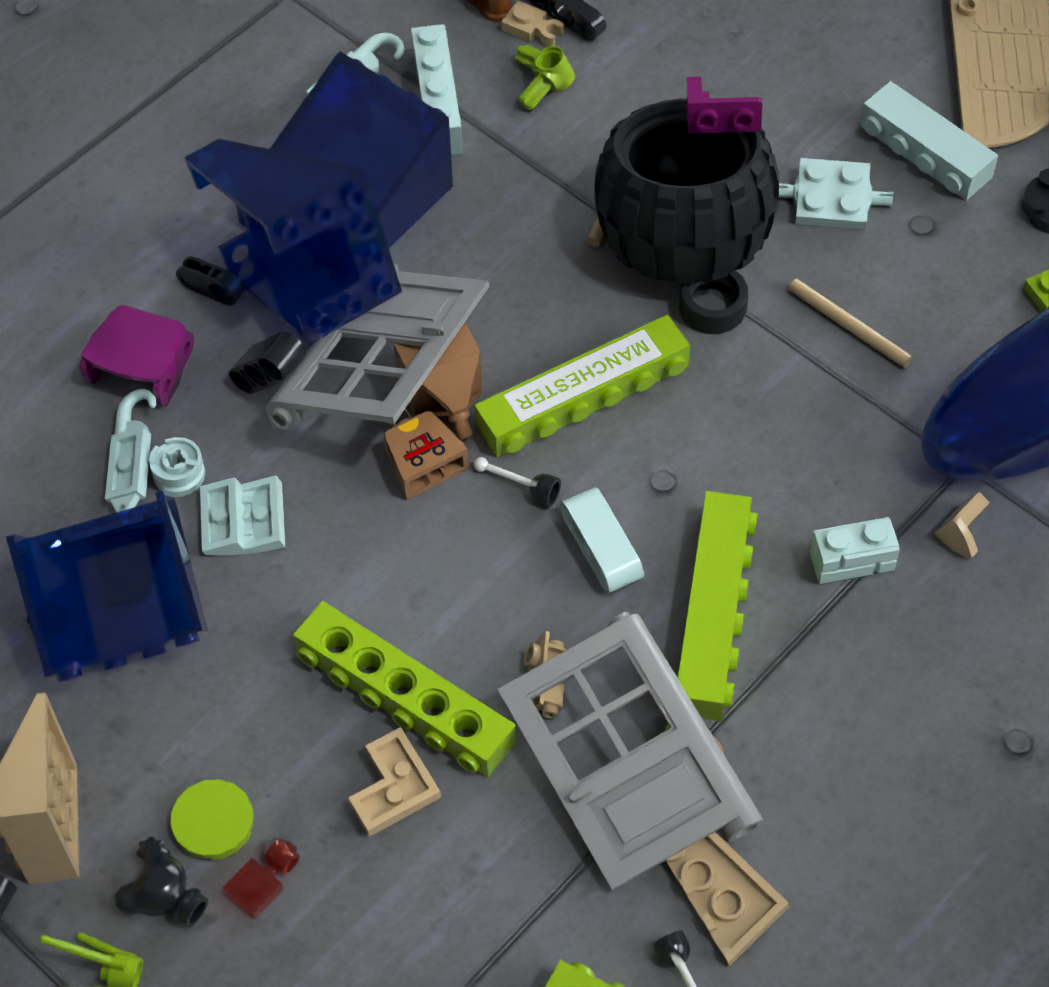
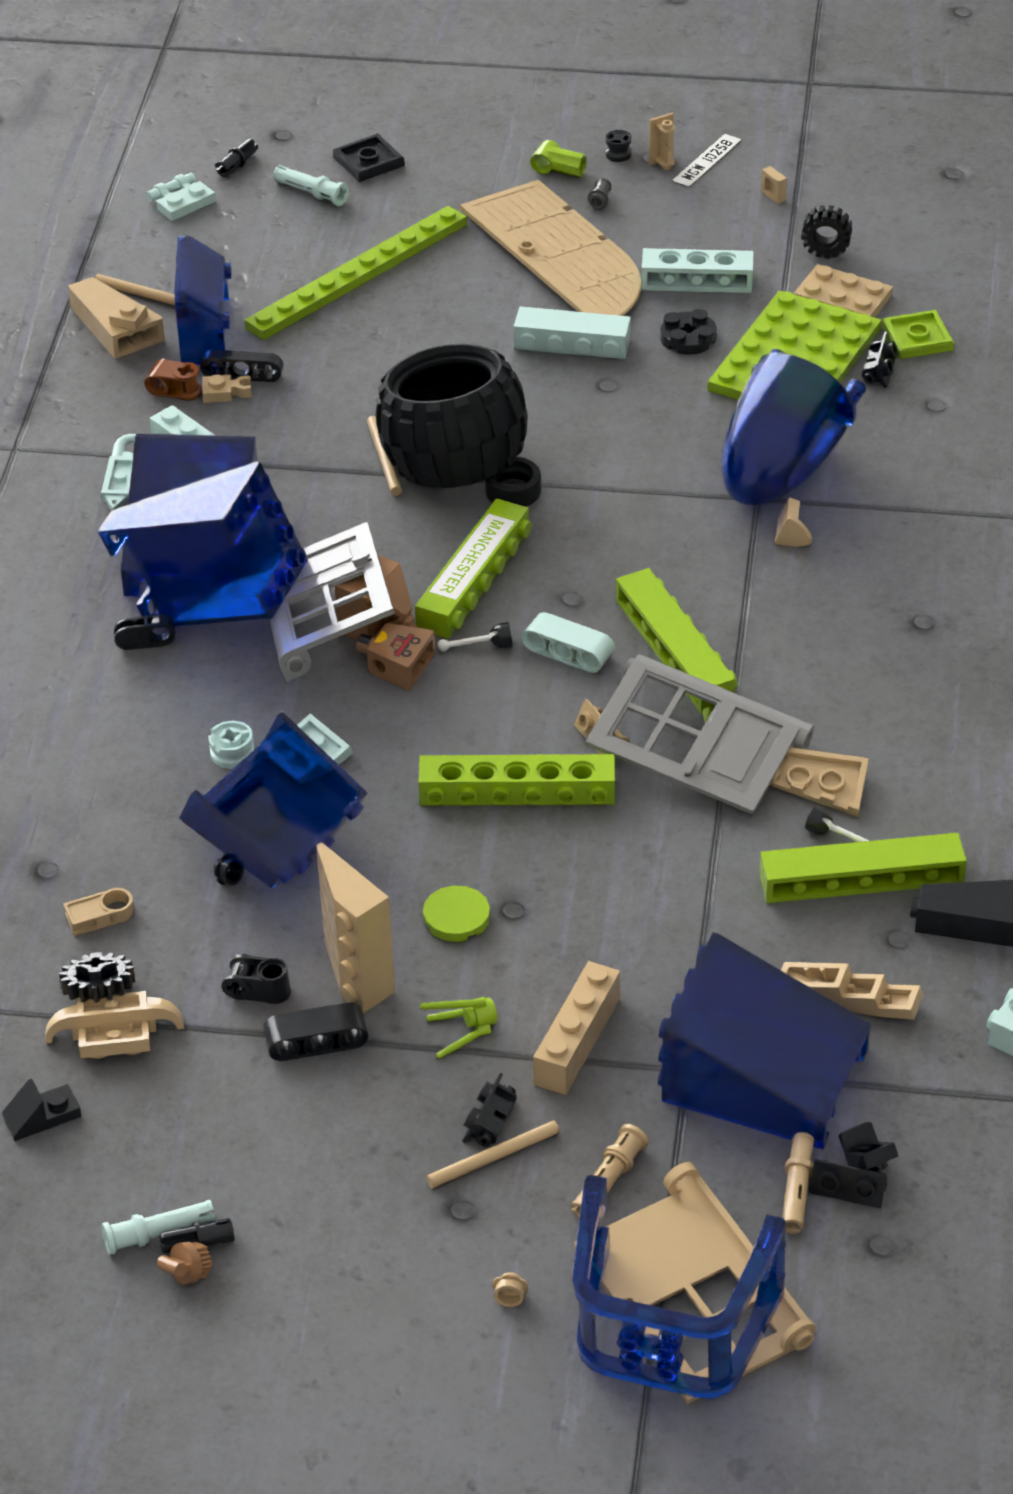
camera: 35 degrees left, 15 degrees down
(129, 454) = (189, 751): light aqua plate -> none
(139, 349) = (137, 688): magenta piece -> none
(161, 887) = (461, 958): black animal -> none
(256, 885) = (522, 928): clear red plate -> none
(267, 362) = (247, 647): black beam -> none
(403, 788) = (565, 830): tan plate -> none
(550, 71) = (269, 404): lime axle -> none
(720, 114) = (451, 345): magenta bracket -> none
(833, 194) = (545, 389): light aqua plate -> none
(850, 323) = (614, 457): tan bar -> none
(854, 550) = (737, 569): light aqua brick -> none

